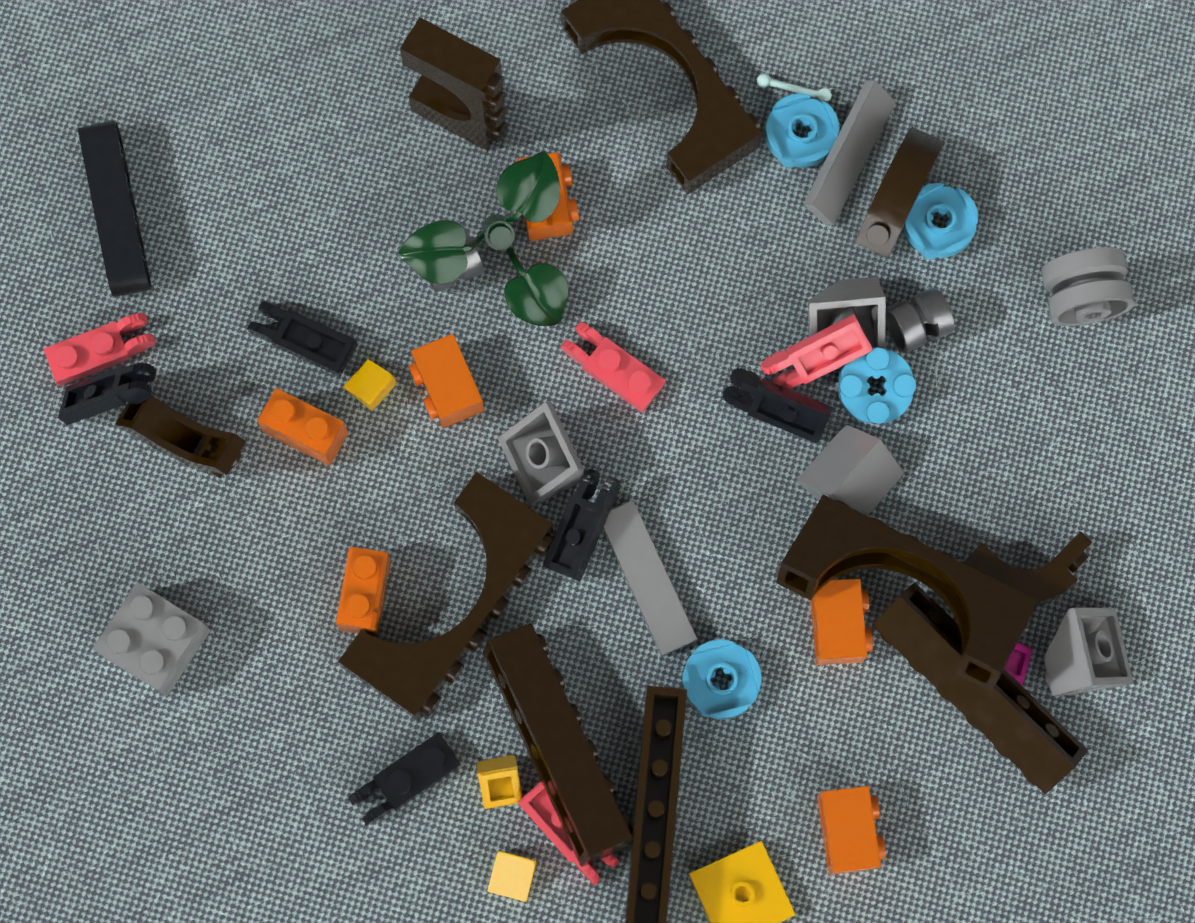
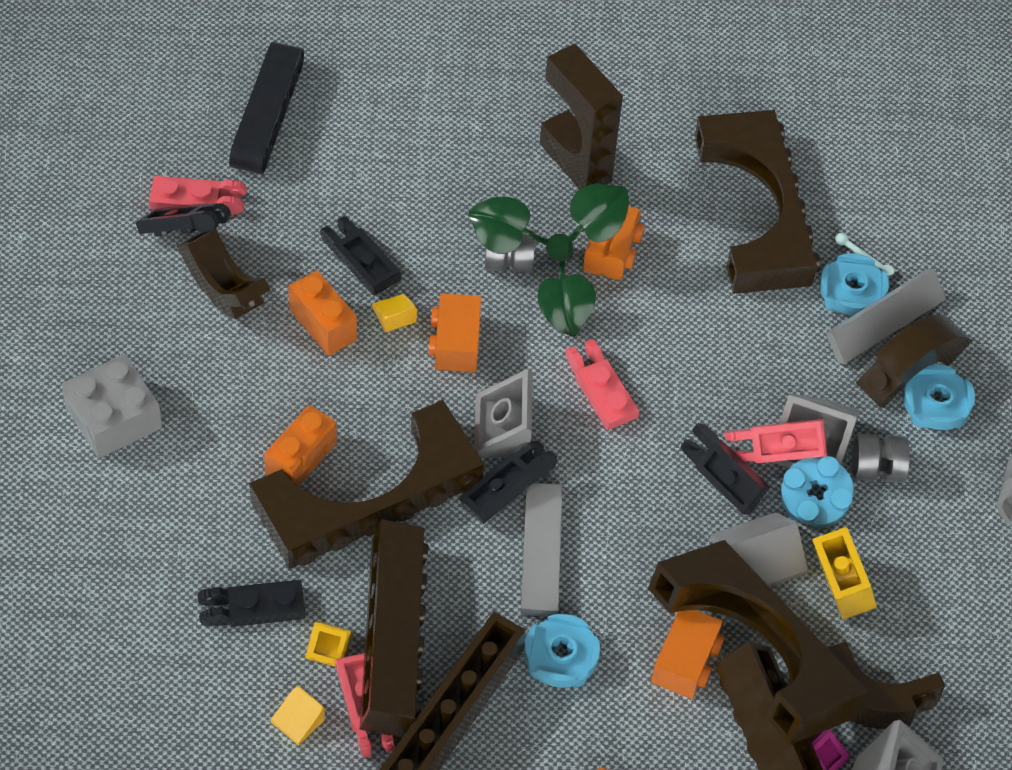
camera: 25 degrees right, 20 degrees down
(945, 466) = (844, 573): none -> yellow brick

